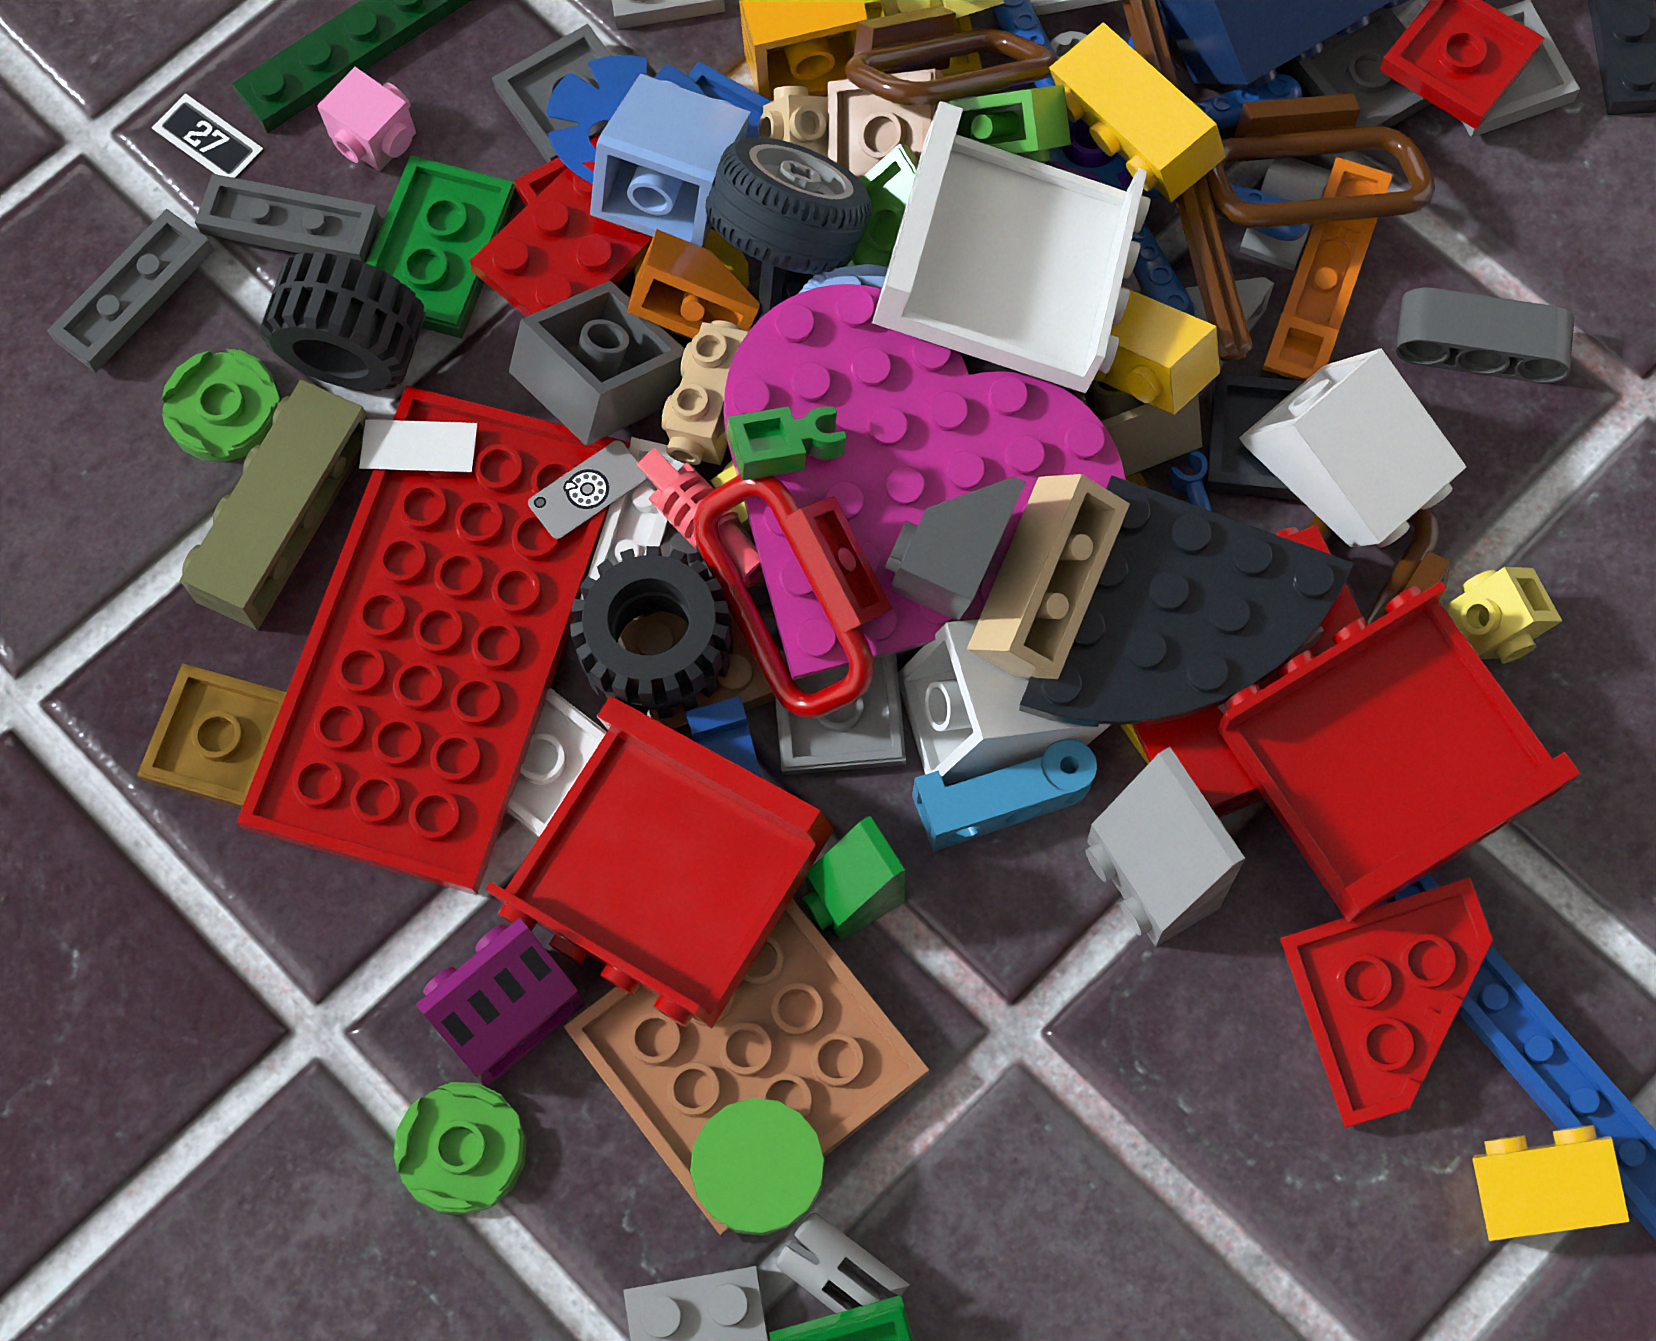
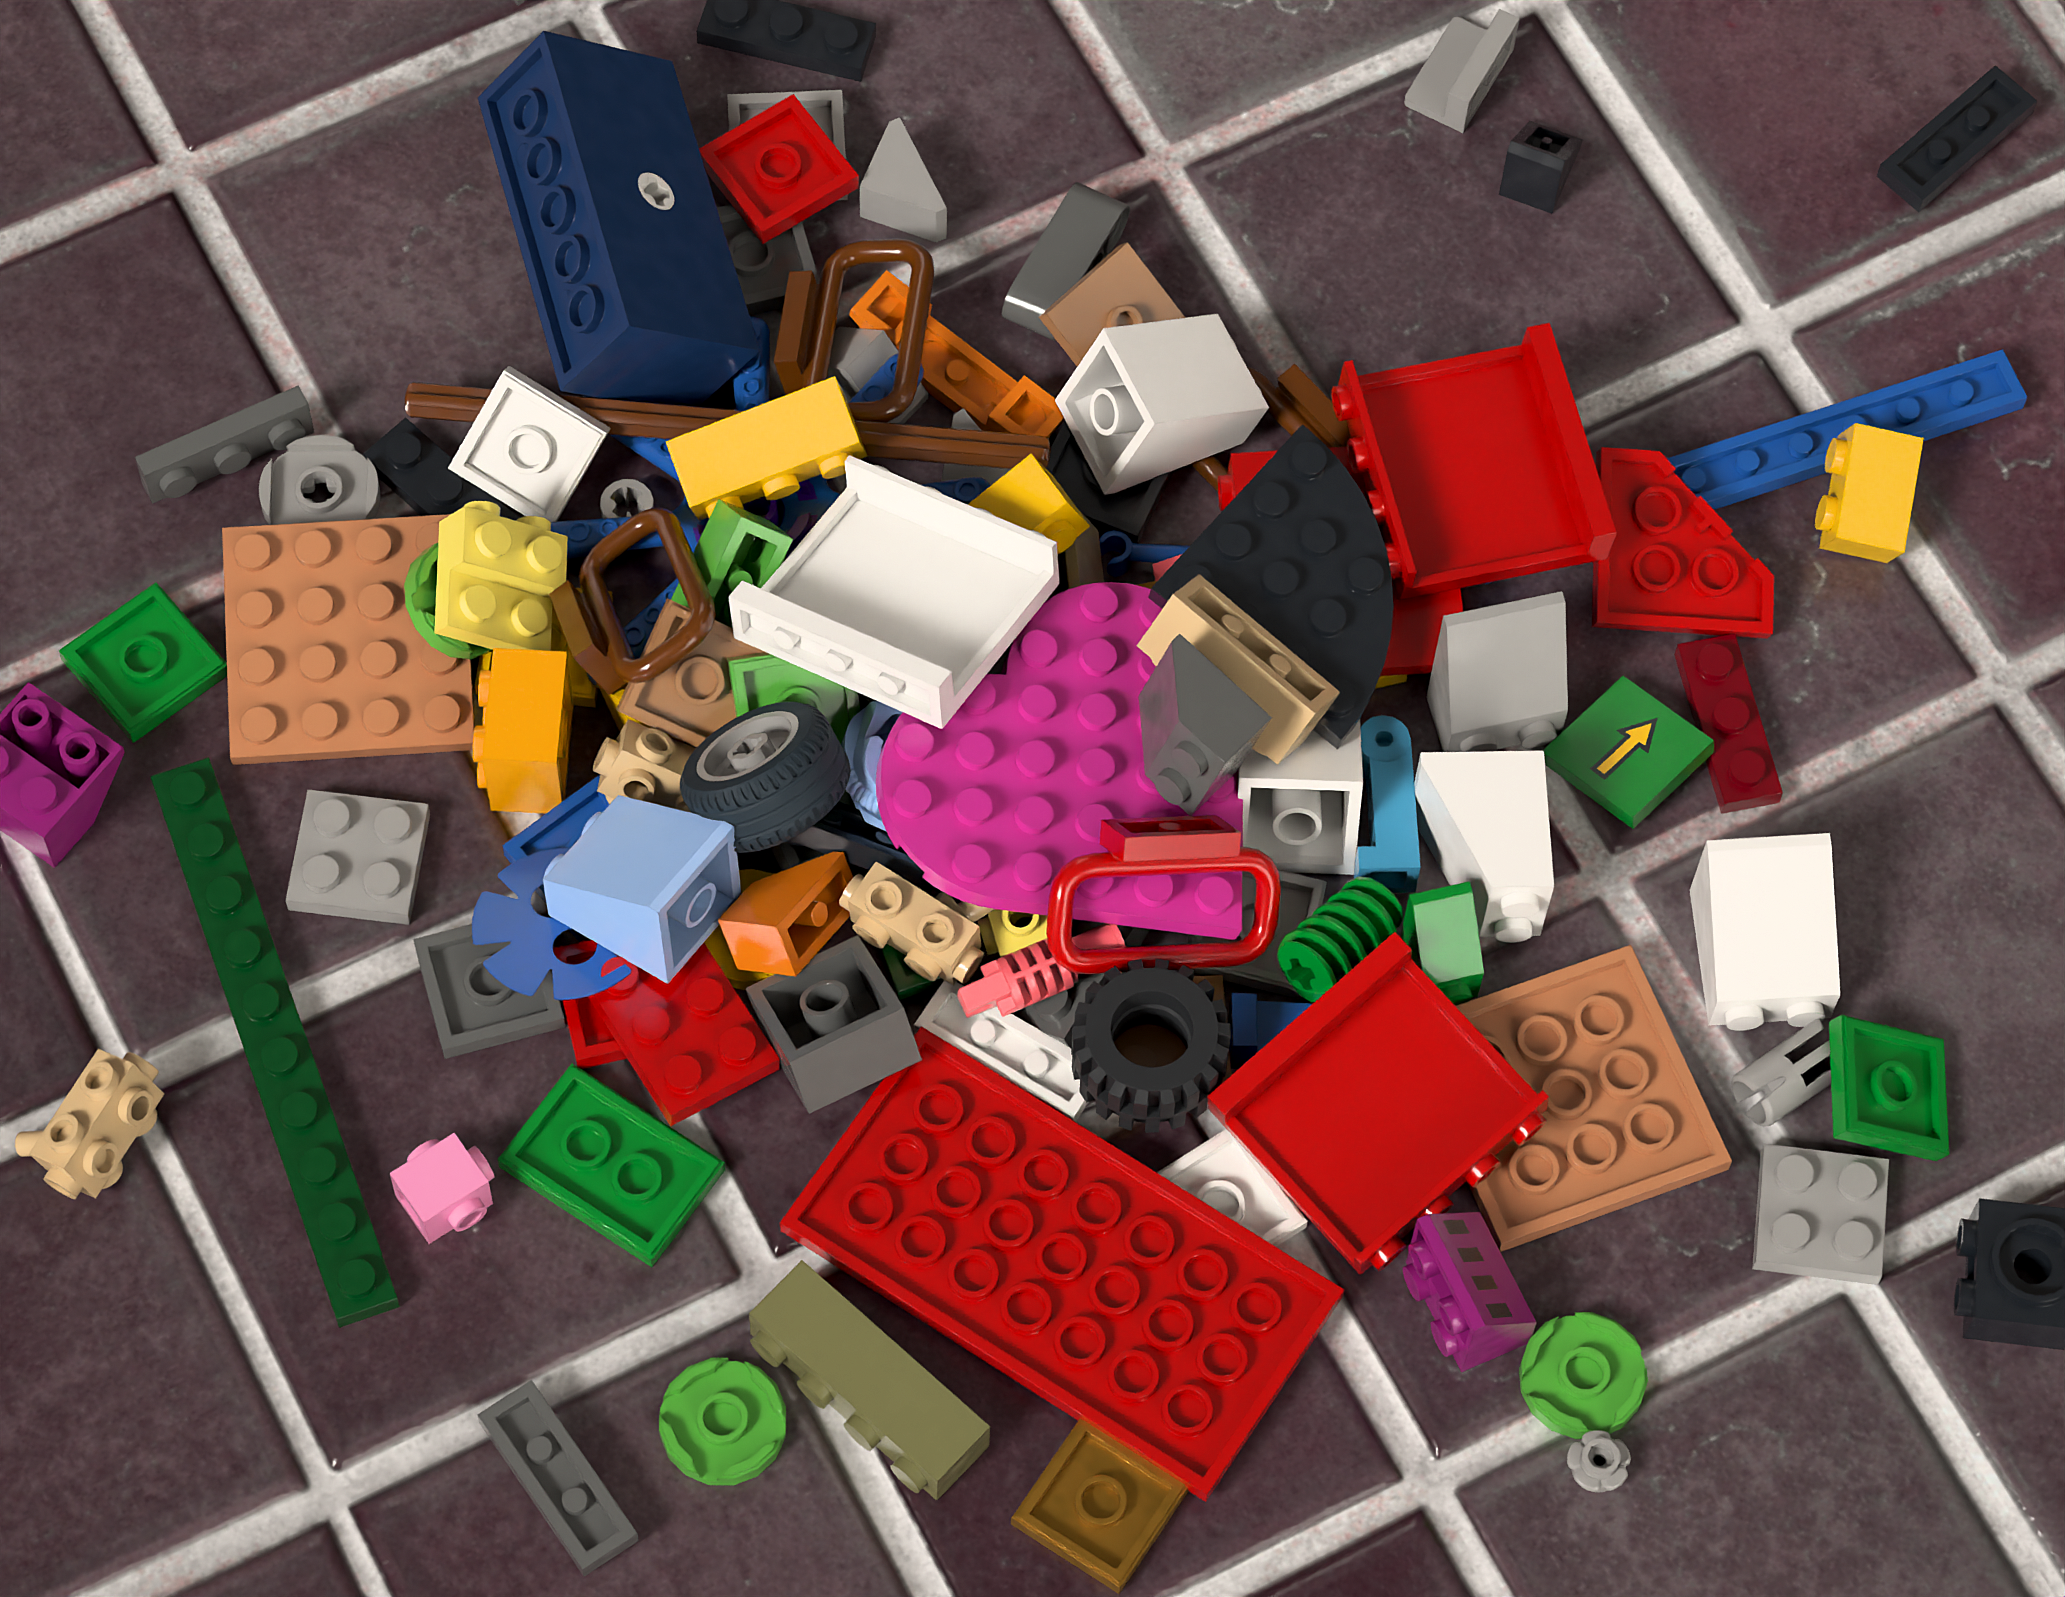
camera: 80 degrees left, 5 degrees down
(207, 137) = (382, 1369): sticker -> none
(286, 218) = (530, 1299): dark grey plate -> none
(342, 321) = (705, 1250): black tyre -> none
(386, 1188) = (1595, 1477): none -> light grey plate
(418, 445) = (854, 1226): white sticker -> none
(587, 489) = (960, 1078): light grey sticker -> none
(757, 1166) = (1683, 1106): bright green tile -> none
(777, 444) = (1039, 848): green plate -> none
(832, 778) = (1338, 936): none -> green piece
(981, 1204) = (1767, 930): none -> white slope
(990, 895) = (1492, 828): none -> white slope
(1151, 1013) = (1628, 752): none -> green tile
(1228, 1110) = (1728, 714): none -> dark red plate
(1449, 380) = (1110, 295): none -> medium nougat plate
(1501, 166) = (900, 190): none -> light grey slope
(1503, 612) = (1351, 333): light yellow brick -> none

